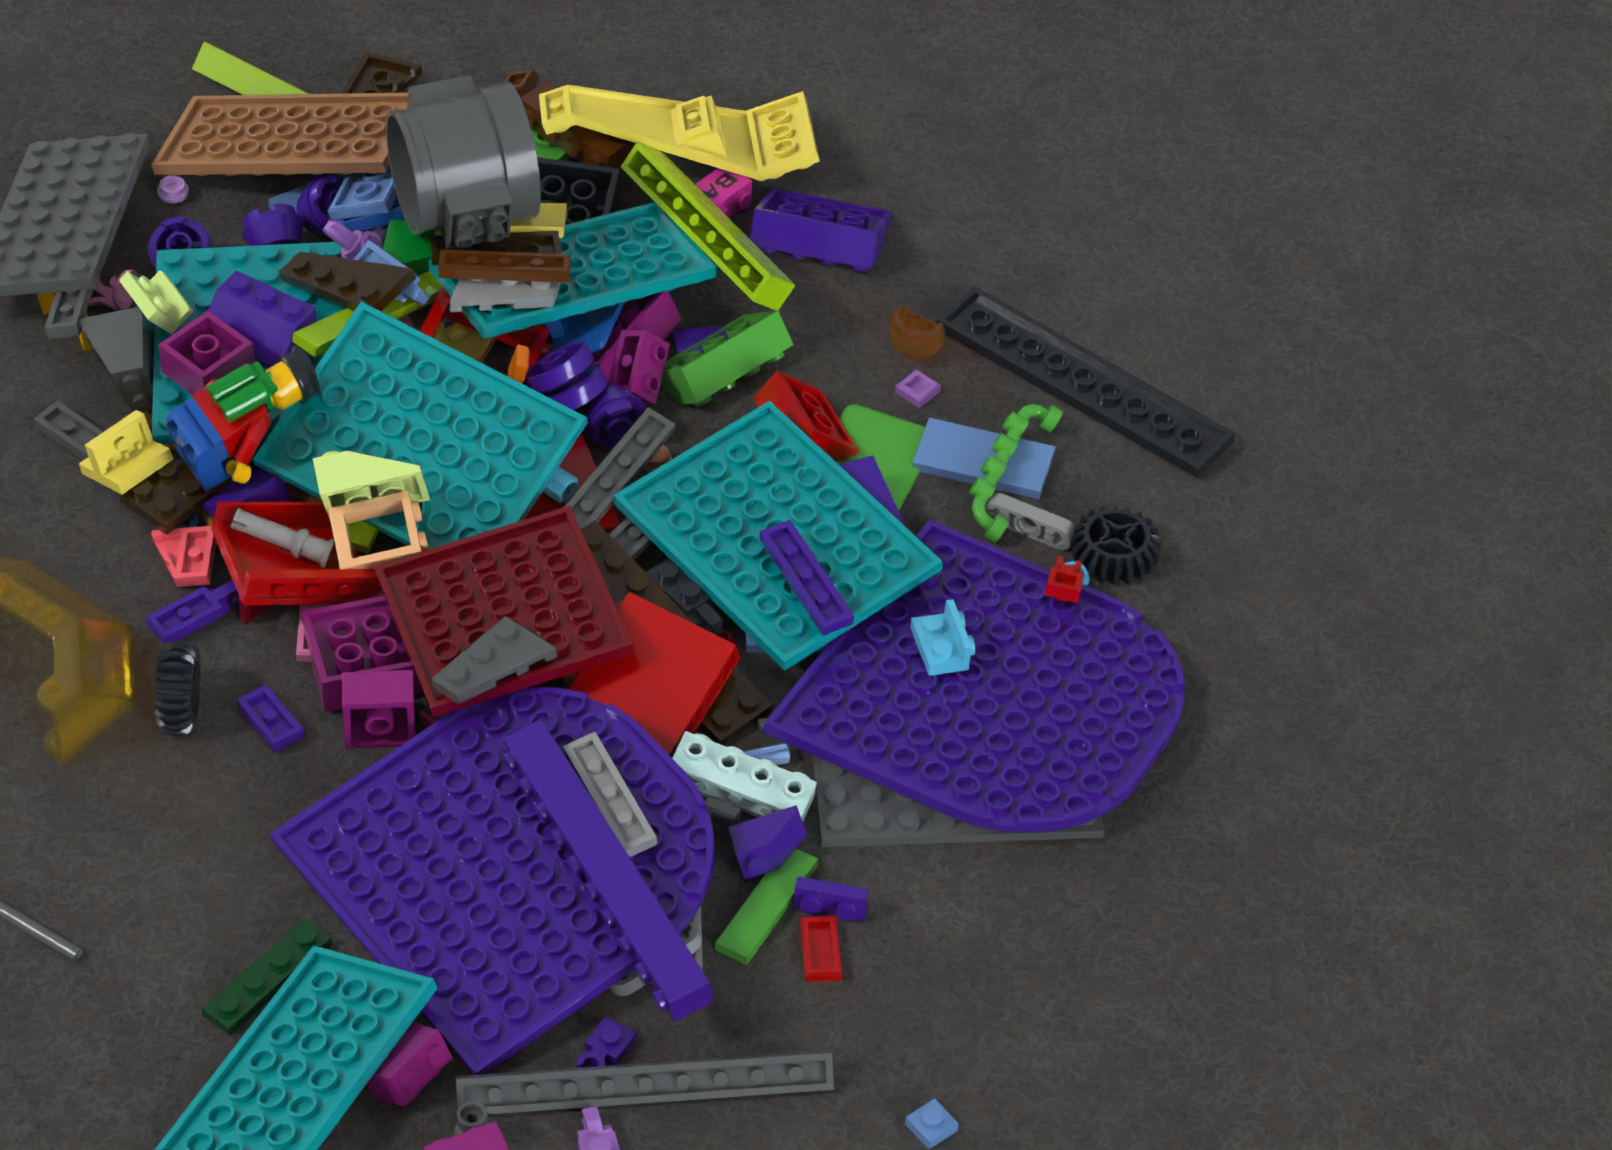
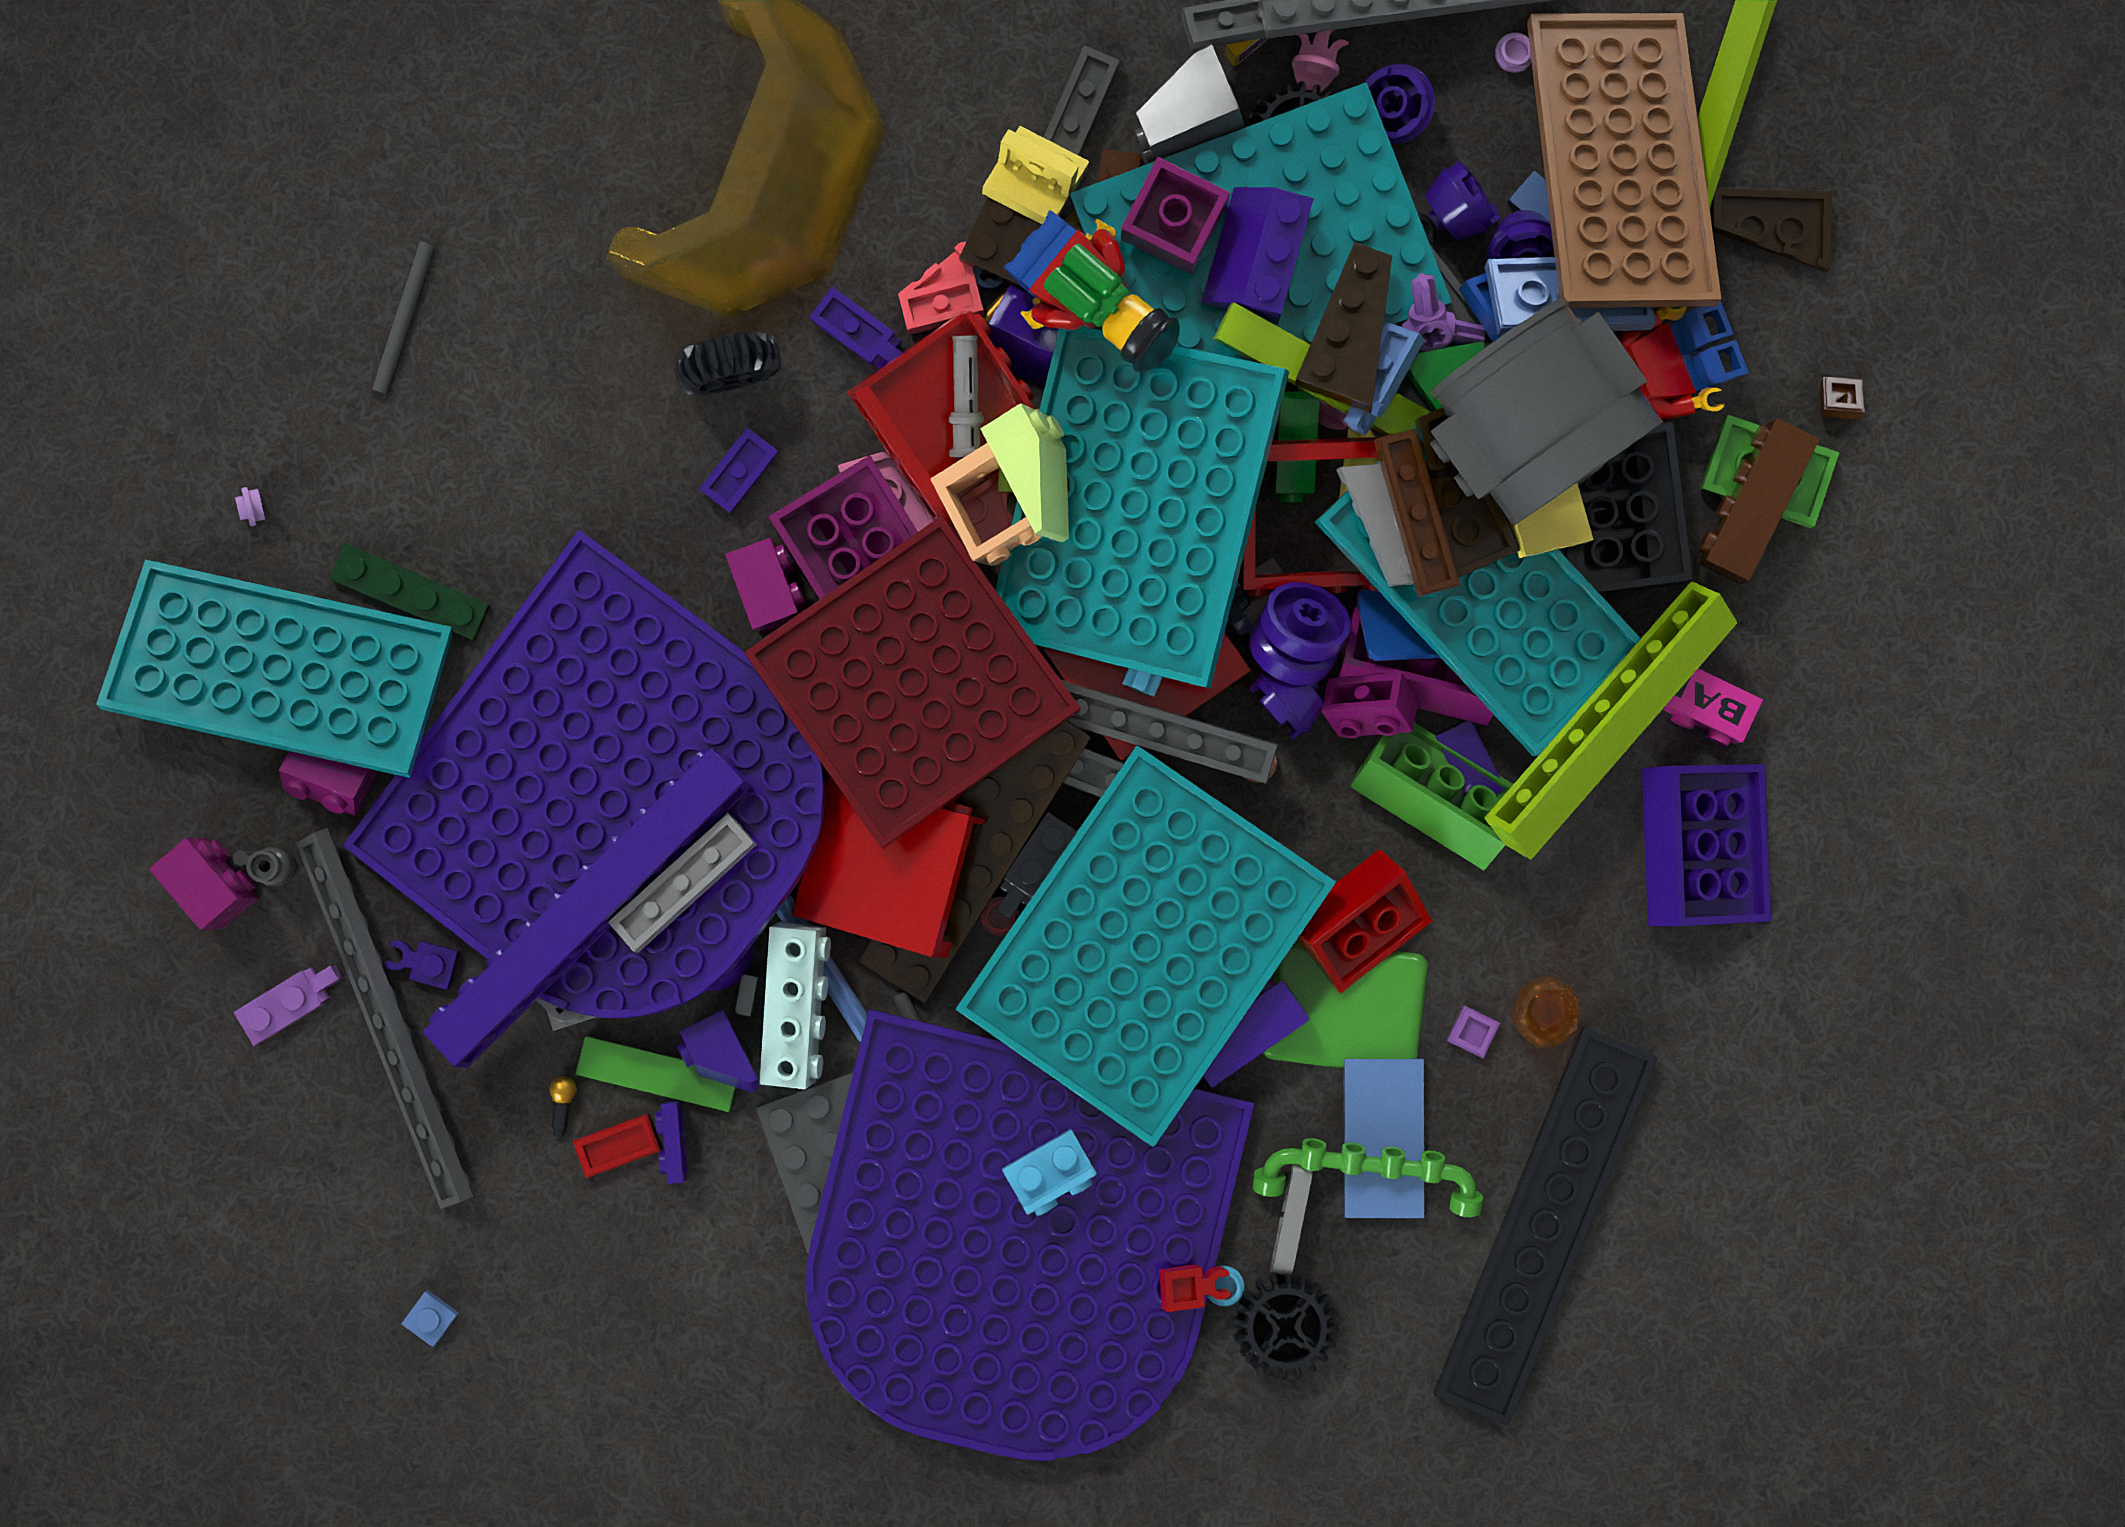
camera: 80 degrees right, 40 degrees up
(135, 1068) = (250, 506): none -> lavender plate
(158, 299) = (1255, 119): yellowish green bracket -> none
(496, 654) = (818, 699): dark grey wing -> none
(519, 364) = (1286, 576): orange tile -> none
(751, 142) = (1825, 717): light yellow wing -> none
(759, 973) = (562, 1092): none -> piece
(806, 577) = (1069, 1003): dark purple plate -> none

